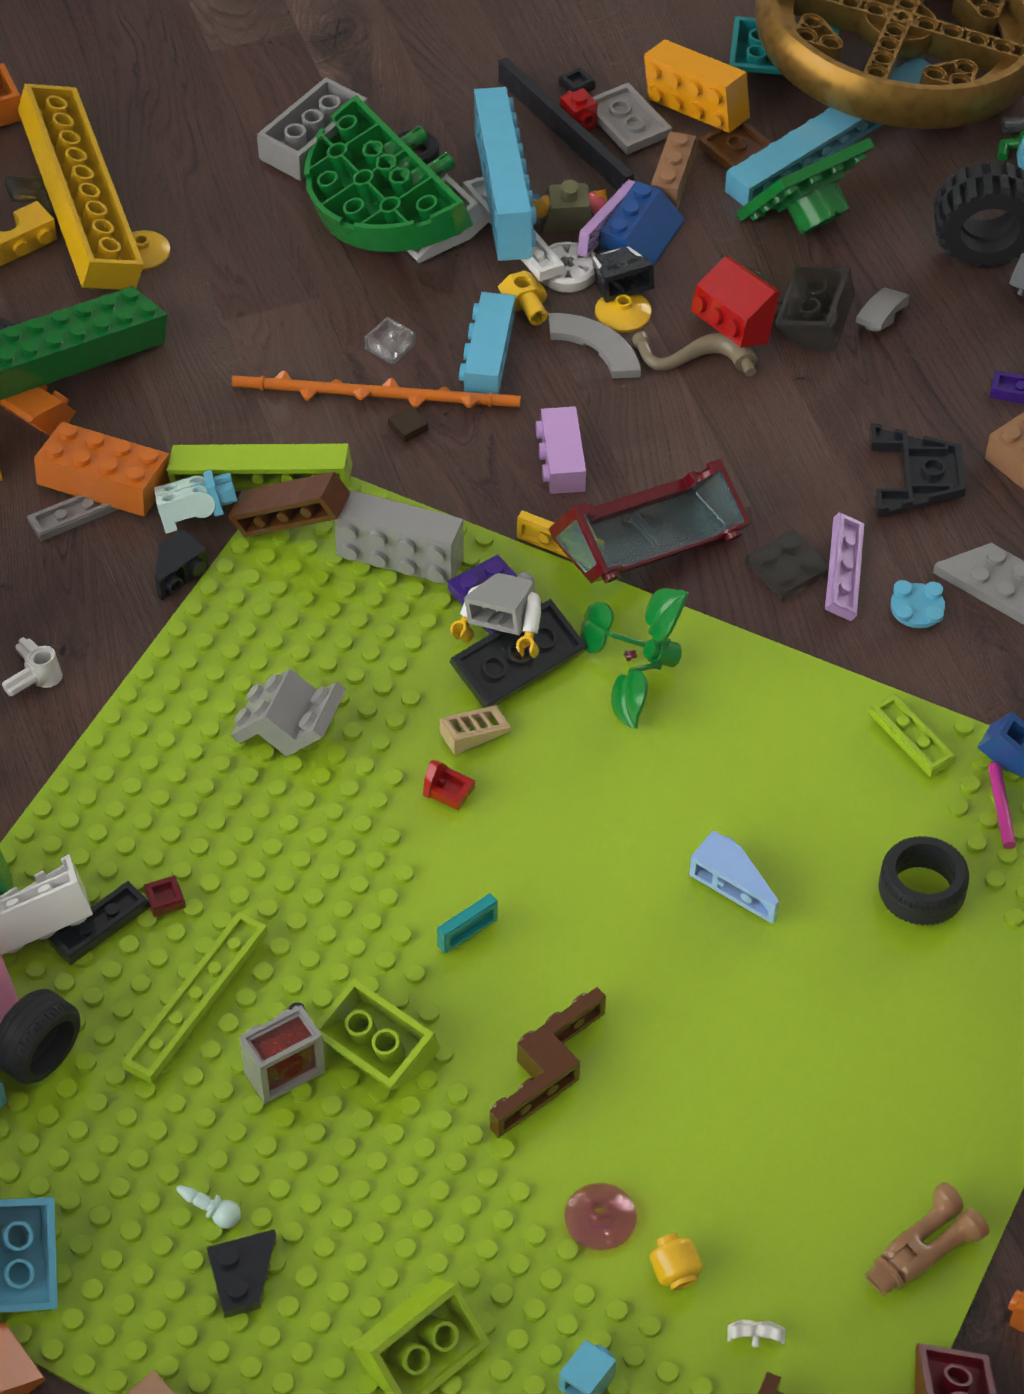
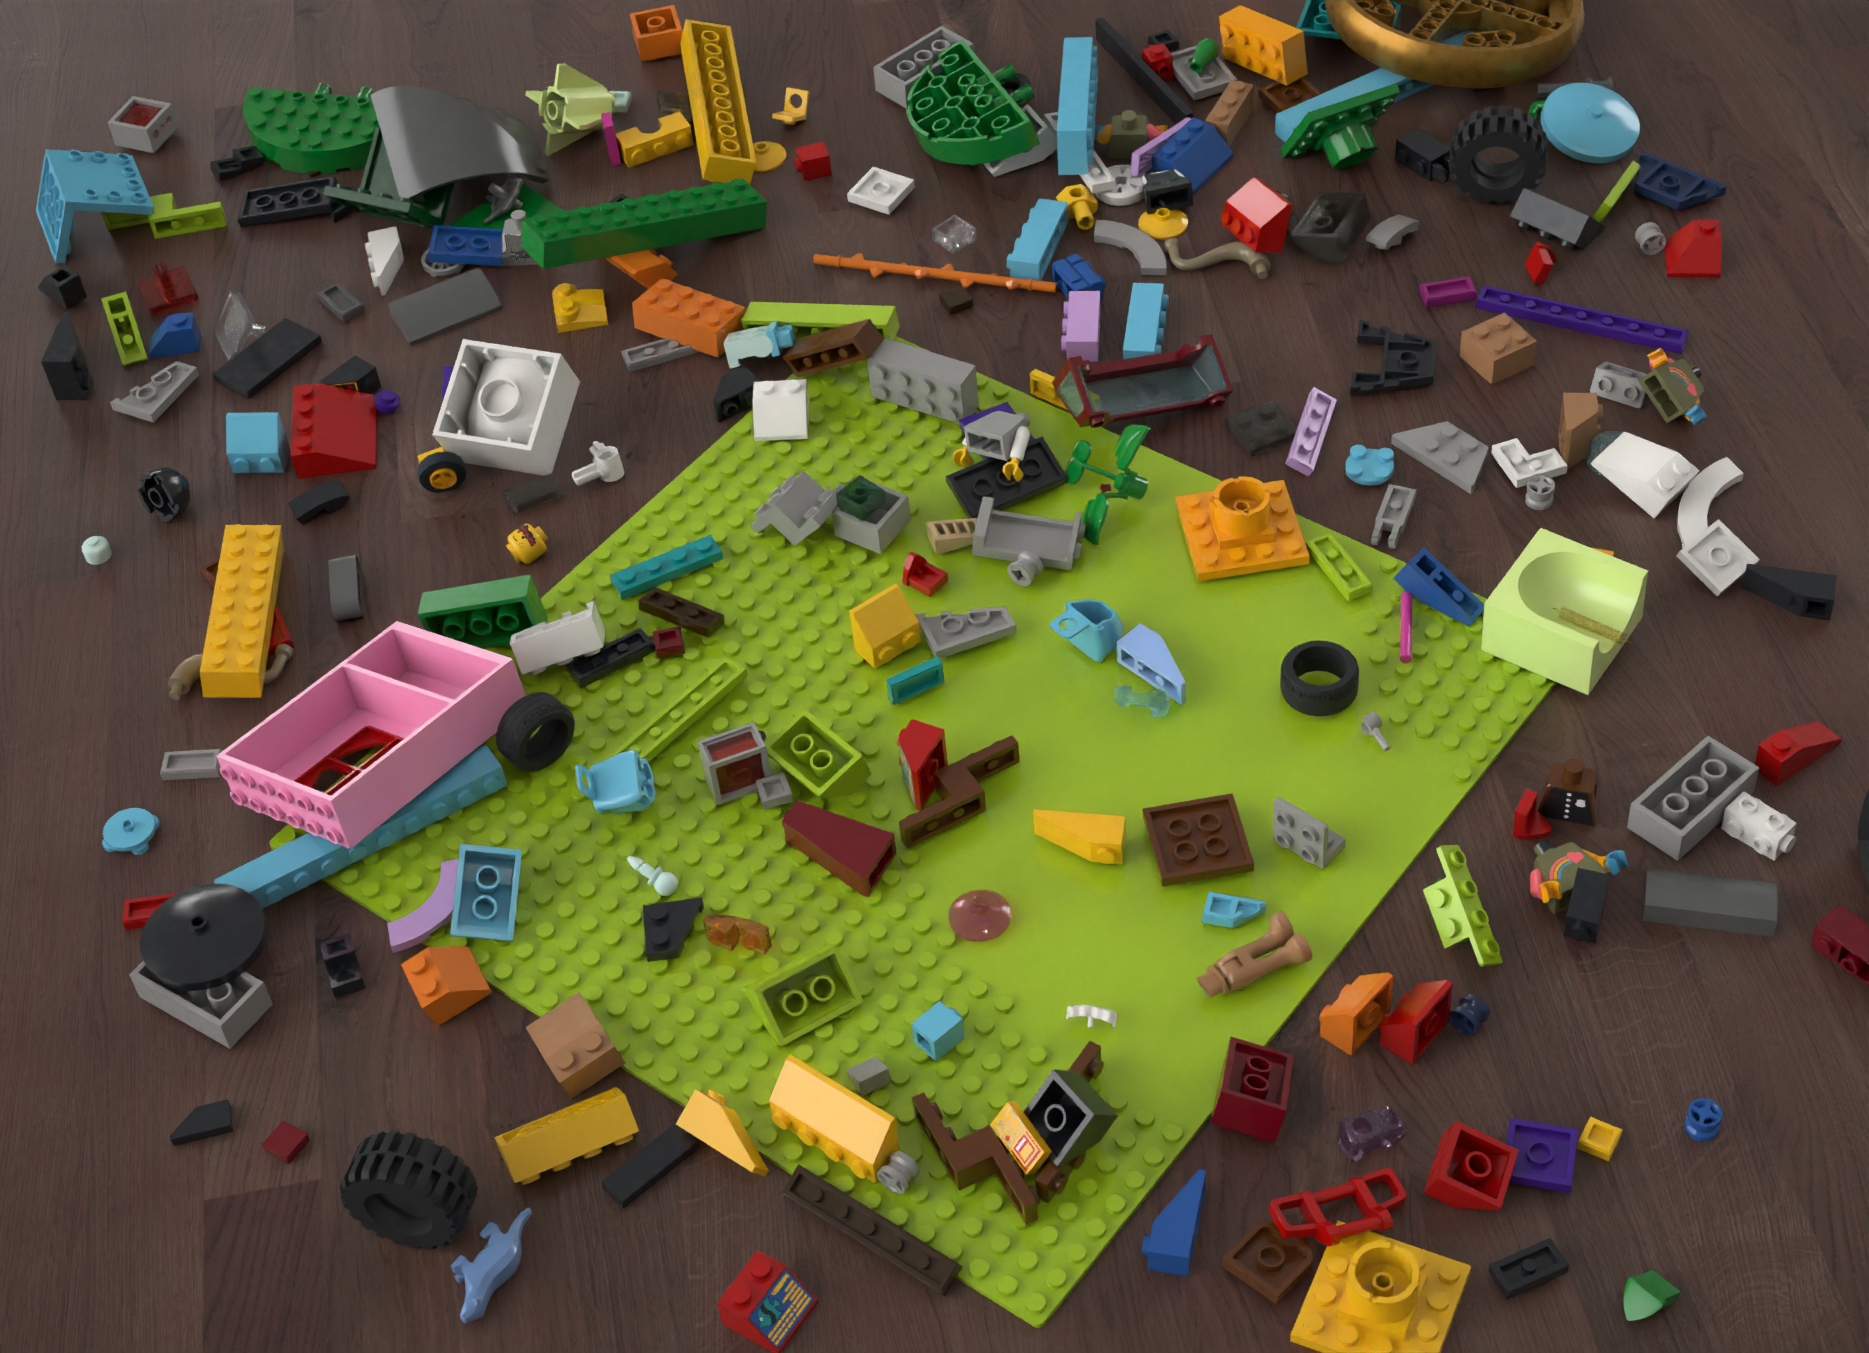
camera: 15 degrees right, 5 degrees down
(141, 797) = (666, 567): none -> teal plate
(149, 1094) = (619, 783): none -> medium azure piece
(166, 195) = (791, 114): none -> yellow bracket
(173, 857) = (681, 612): none -> dark brown plate
(206, 255) = (812, 161): none -> red brick
(237, 584) = (781, 410): none -> white slope
(293, 288) = (881, 190): none -> white plate
(316, 1270) = (730, 930): none -> clear orange slope
(331, 1081) = (774, 791): none -> light grey plate
(364, 699) = (861, 498): none -> clear green piece
(374, 715) = (879, 528): none -> light grey brick
(420, 860) = (884, 626): none -> yellow slope
(423, 1144) = (841, 845): none -> dark red slope
(498, 1028) = (921, 755): none -> red slope
(509, 853) = (960, 632): none -> light grey wing
(543, 388) = (1076, 275): none -> blue brick
(558, 727) = (1008, 534): none -> light grey panel
(563, 767) = (1025, 568): none -> light grey wheel
(631, 99) = (1204, 54): none -> green cone
(631, 443) = (1145, 320): none -> medium azure brick
(656, 839) = (1090, 627): none -> medium azure piece
(676, 1262) = (1033, 953): yellow head -> none
(708, 1104) = (1088, 835): none -> yellow slope
(748, 925) = (1156, 700): none -> clear light blue bar
(795, 698) = (1241, 529): none -> light orange piece
(829, 1097) = (1197, 840): none -> reddish brown plate
(881, 1180) = (1230, 910): none -> medium azure tile
(900, 213) = (1424, 155): none -> black hinge
(949, 1081) = (1305, 834): none -> light grey bracket
(957, 380) = (1448, 292): none -> magenta tile
(957, 662) = (1393, 514): none -> light grey hinge
(988, 934) = (1370, 725): none -> light grey hand

